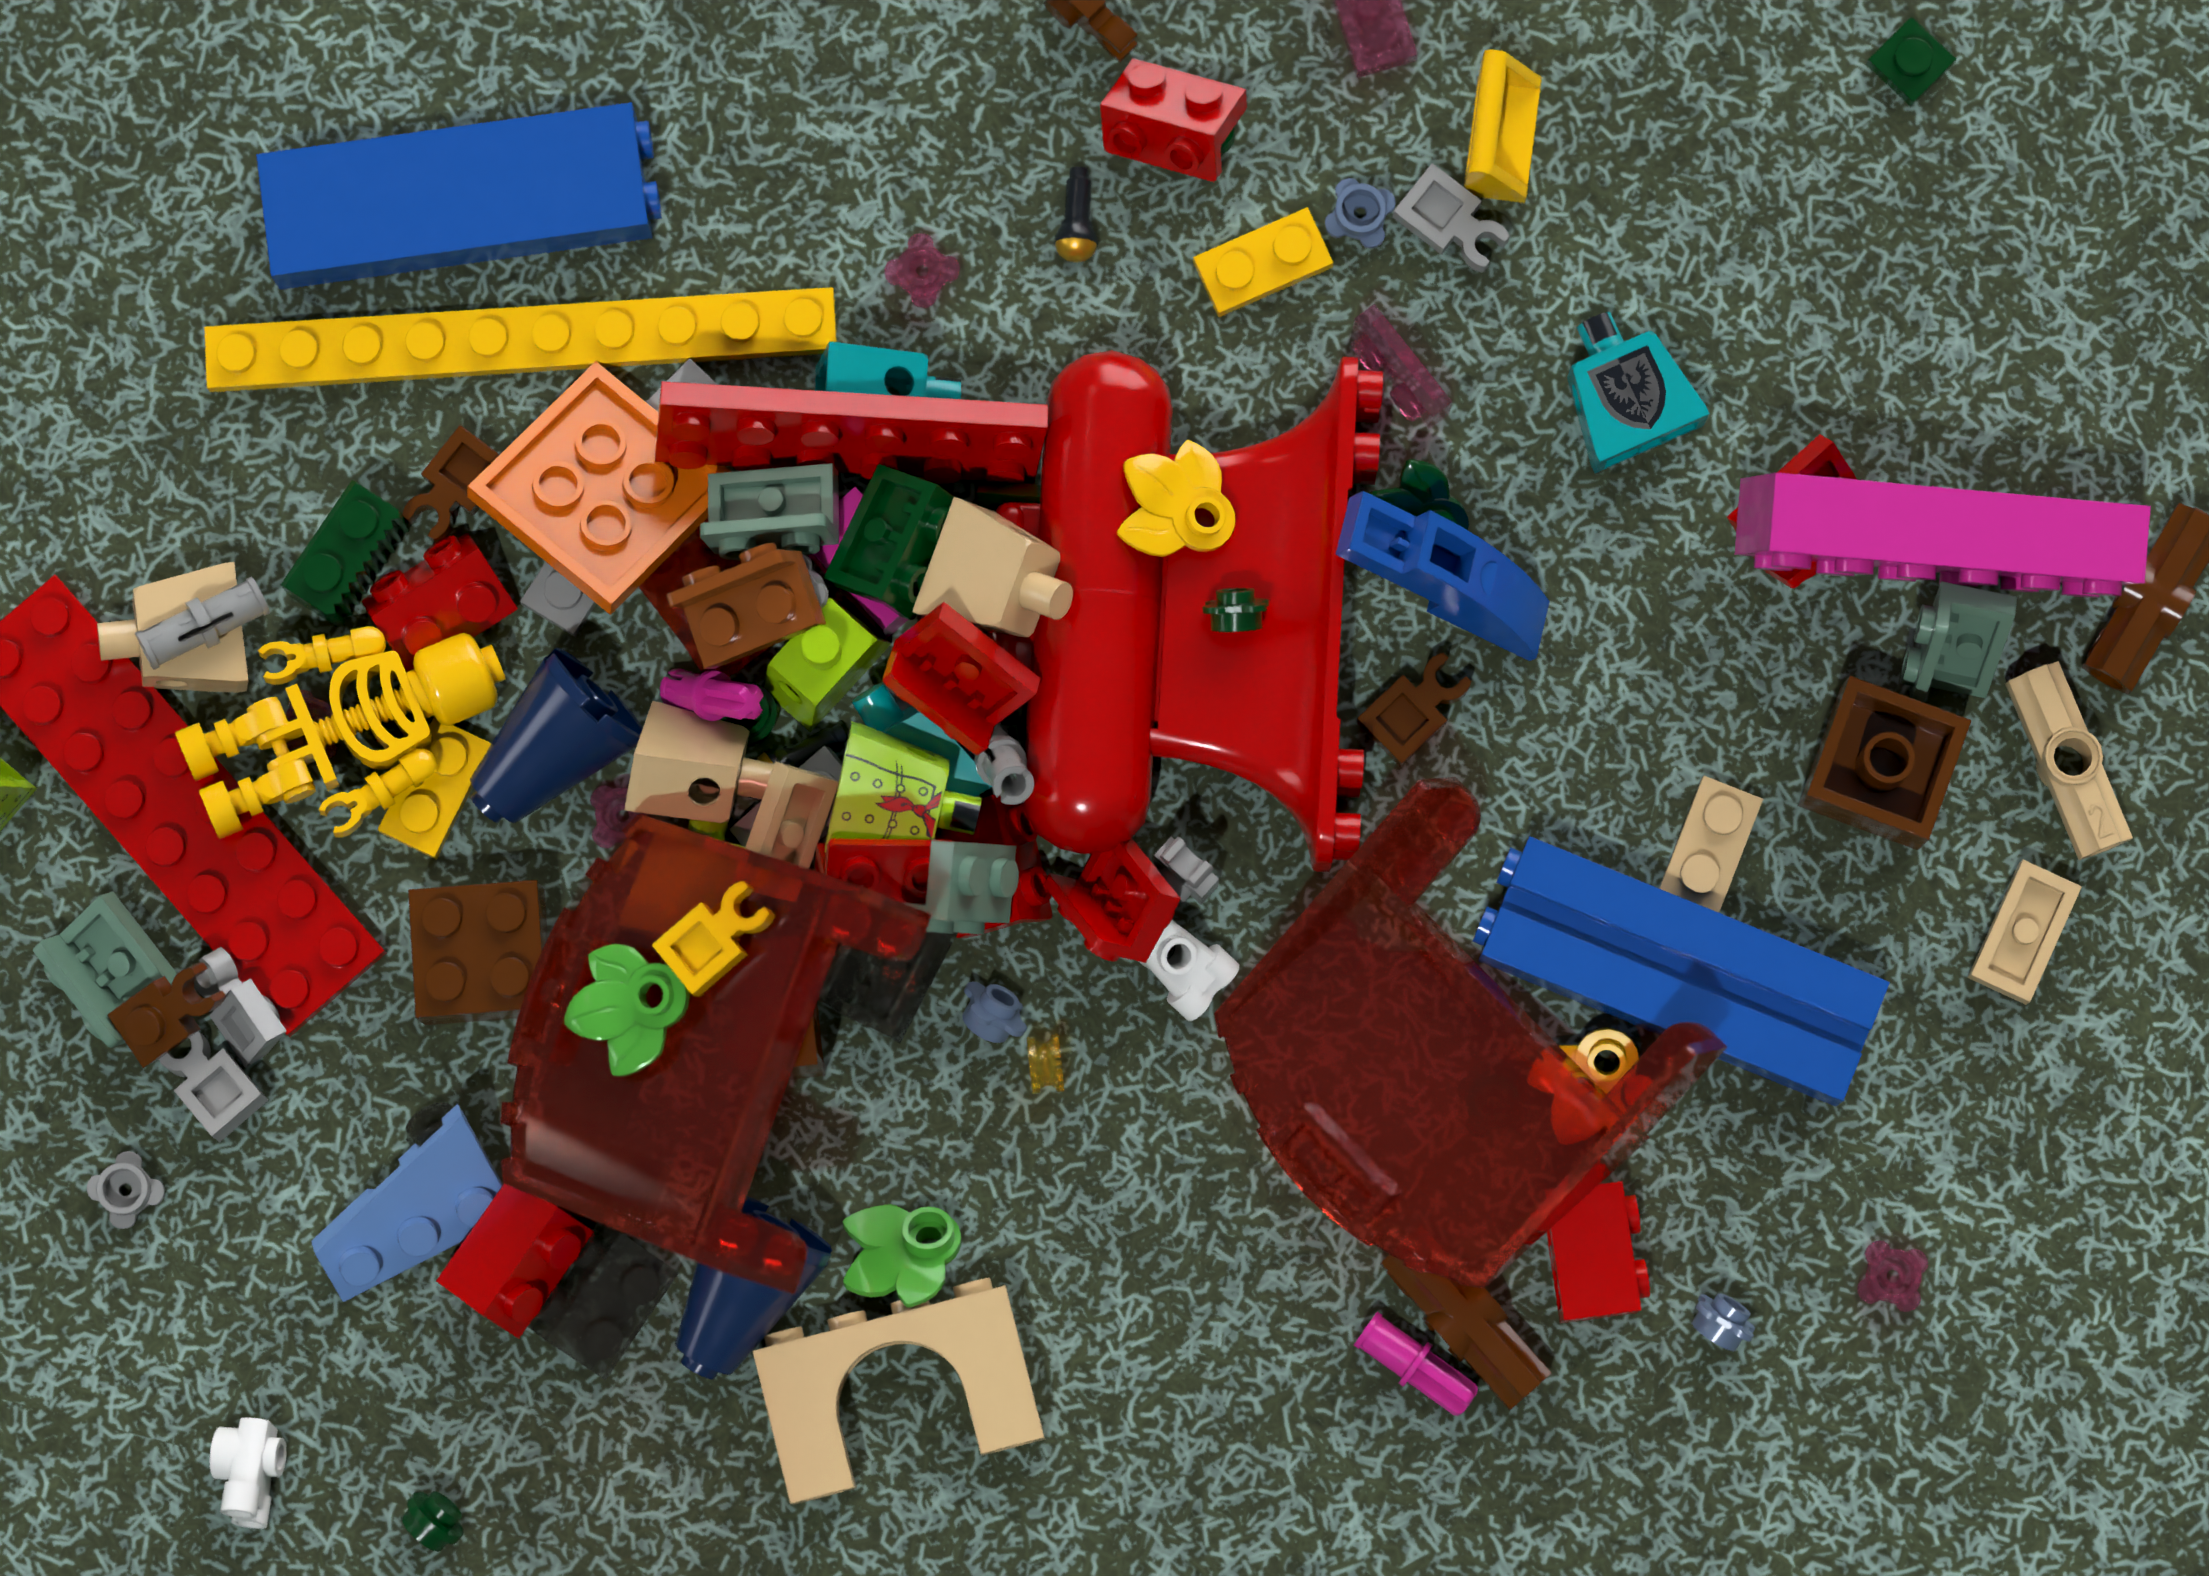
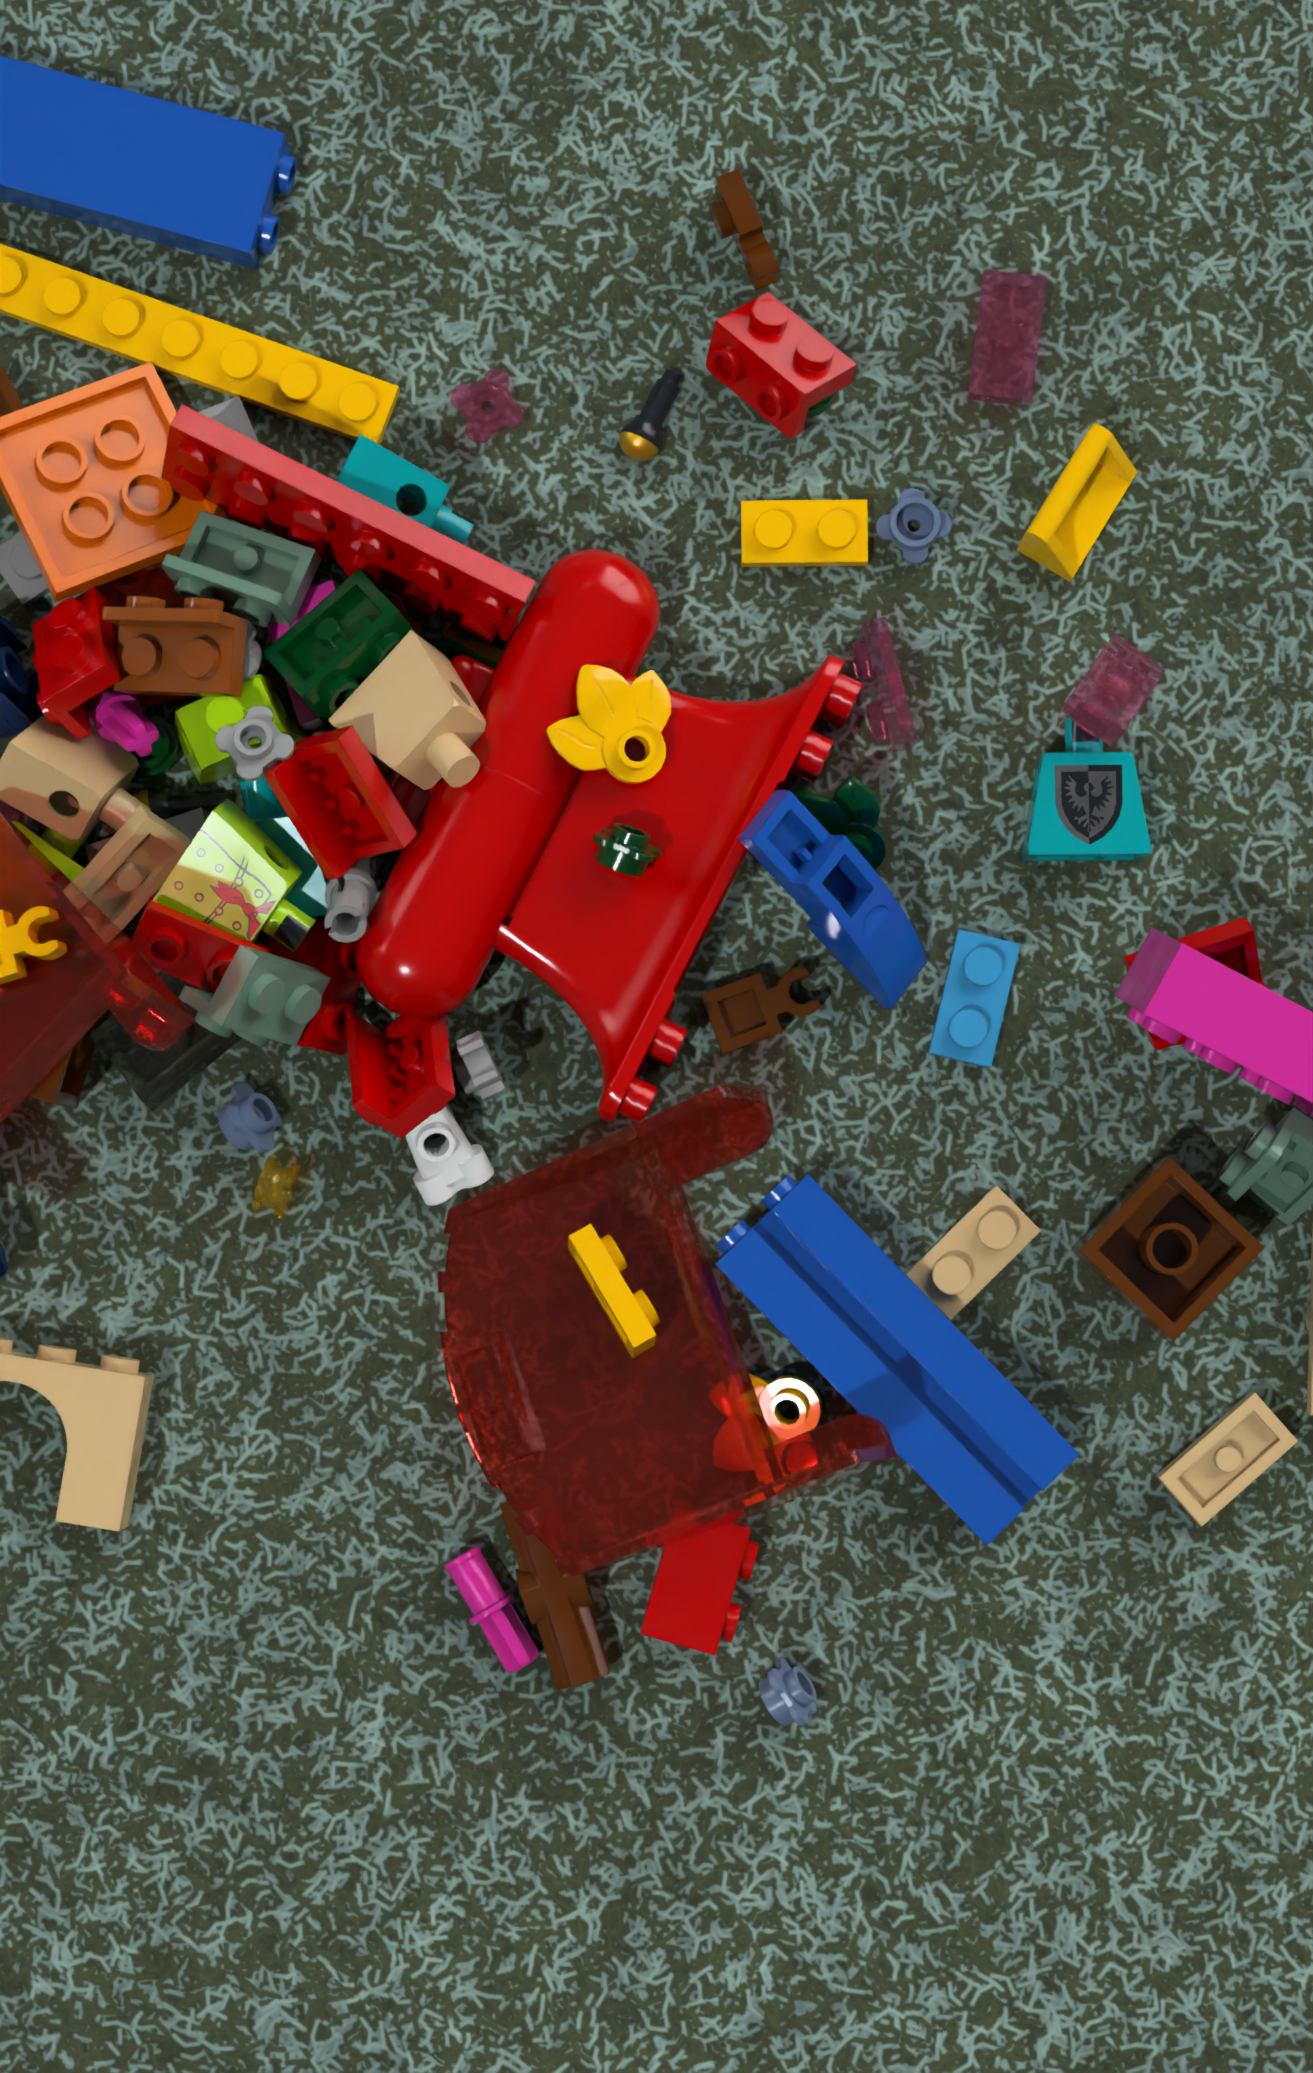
camera: 25 degrees right, 5 degrees up
(652, 657) = (74, 659): none -> red bracket
(863, 675) = (254, 762): none -> light grey plate
(894, 1252) = (61, 1302): bright green plate -> none
(1420, 1032) = (601, 1266): none -> yellow plate
(1443, 213) = (989, 559): light grey plate -> none
(1607, 616) = (974, 998): none -> dark azure plate
(1609, 282) = (1112, 690): none -> clear pink plate
(1909, 1268) = (966, 1737): clear pink plate -> none

